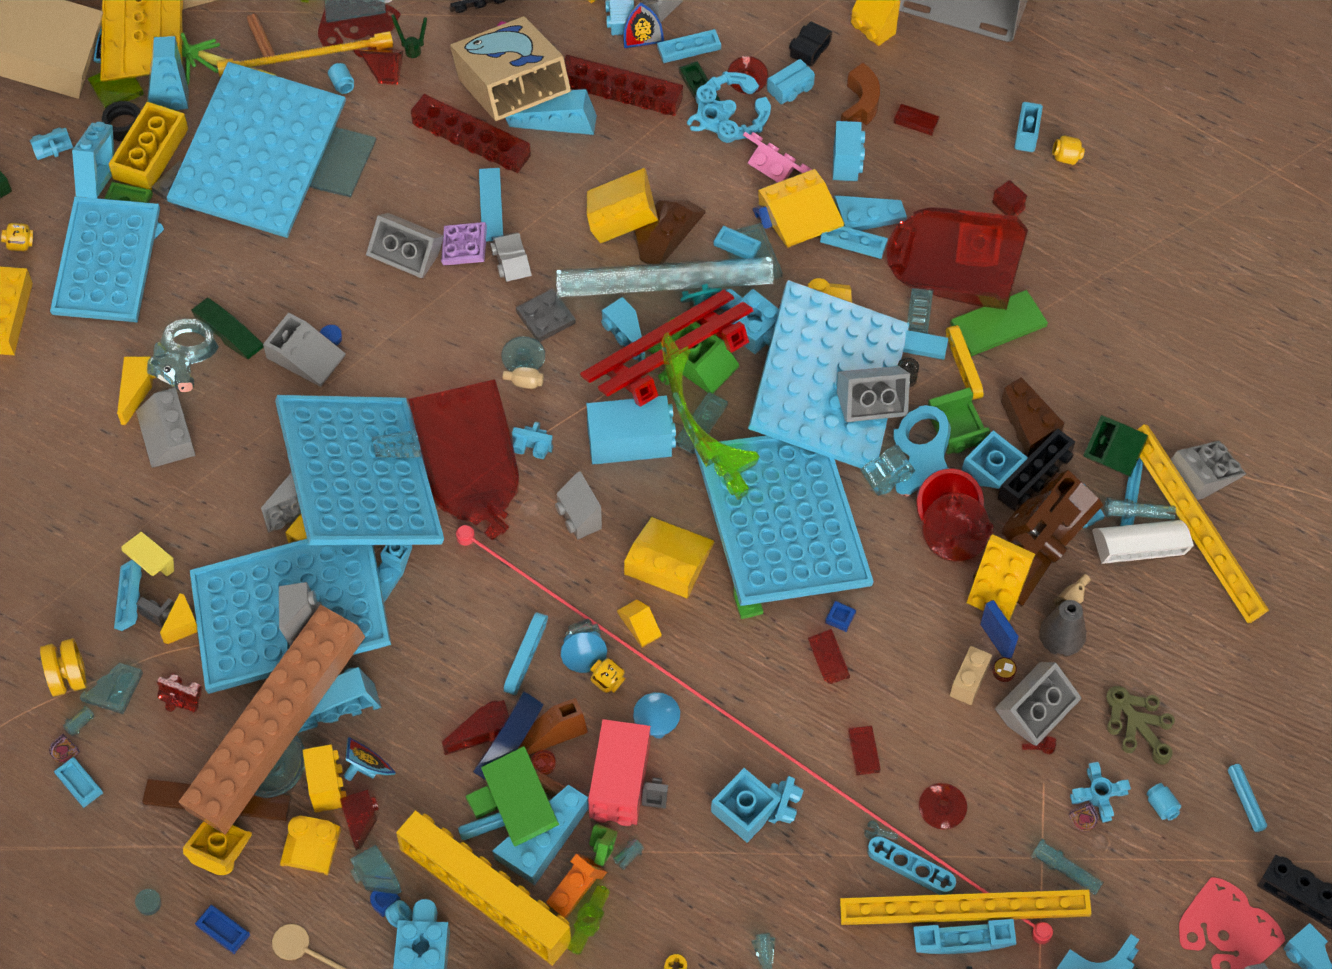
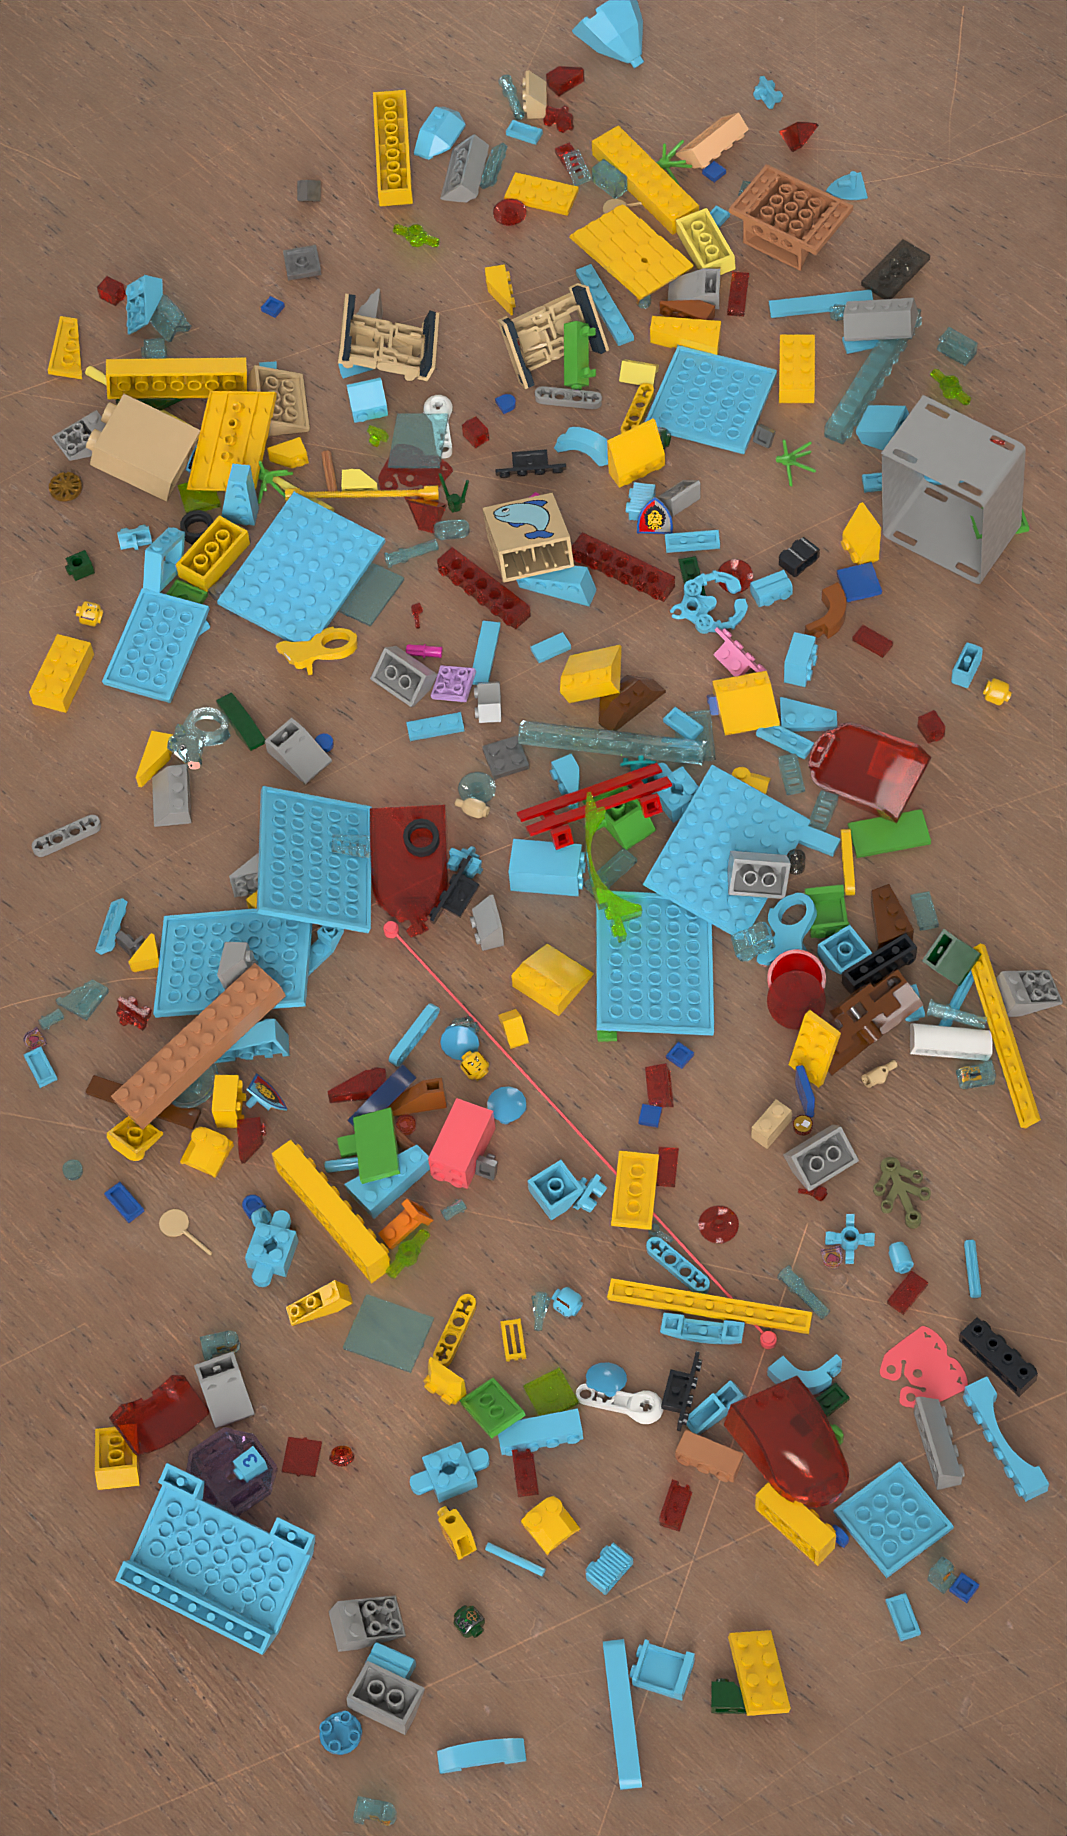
camera: 20 degrees right, 0 degrees up
(50, 500) = (64, 832): none -> light grey beam
(67, 666) = (47, 974): yellow wheel -> none
(148, 555) = (134, 897): light yellow panel -> none
(209, 24) = (289, 453): none -> yellow slope
(284, 238) = (304, 653): none -> yellow animal
(295, 40) = (357, 480): none -> light yellow slope
(341, 78) = (387, 520): medium azure brick -> none
(368, 113) = (403, 555): none -> clear light blue pin
(374, 872) = (249, 1182): clear light blue slope -> none
(399, 170) = (416, 609): none -> clear red hand
(415, 76) = (451, 529): none -> clear light blue plate
(421, 213) = (425, 651): none -> dark pink axle
(455, 295) = (435, 726): none -> medium azure plate
(478, 438) = (416, 824): none -> black tyre
(536, 479) = (458, 894): none -> black bracket
(563, 186) = (550, 647): none -> medium azure tile
(603, 841) = (434, 1196): bright green bracket -> none
(795, 938) = (567, 1302): none -> medium azure head
(827, 693) = (650, 1115): none -> blue tile
(838, 786) = (635, 1190): none -> yellow plate
(866, 265) = (786, 763): none -> clear light blue slope
(883, 59) = (859, 582): none -> blue tile
(1064, 400) = (924, 911): none -> clear light blue tile
(1064, 629) = (861, 1102): flat silver cone -> none
(1181, 573) = (976, 1075): none -> clear light blue leg
(1183, 841) = (907, 1292): none -> clear red plate

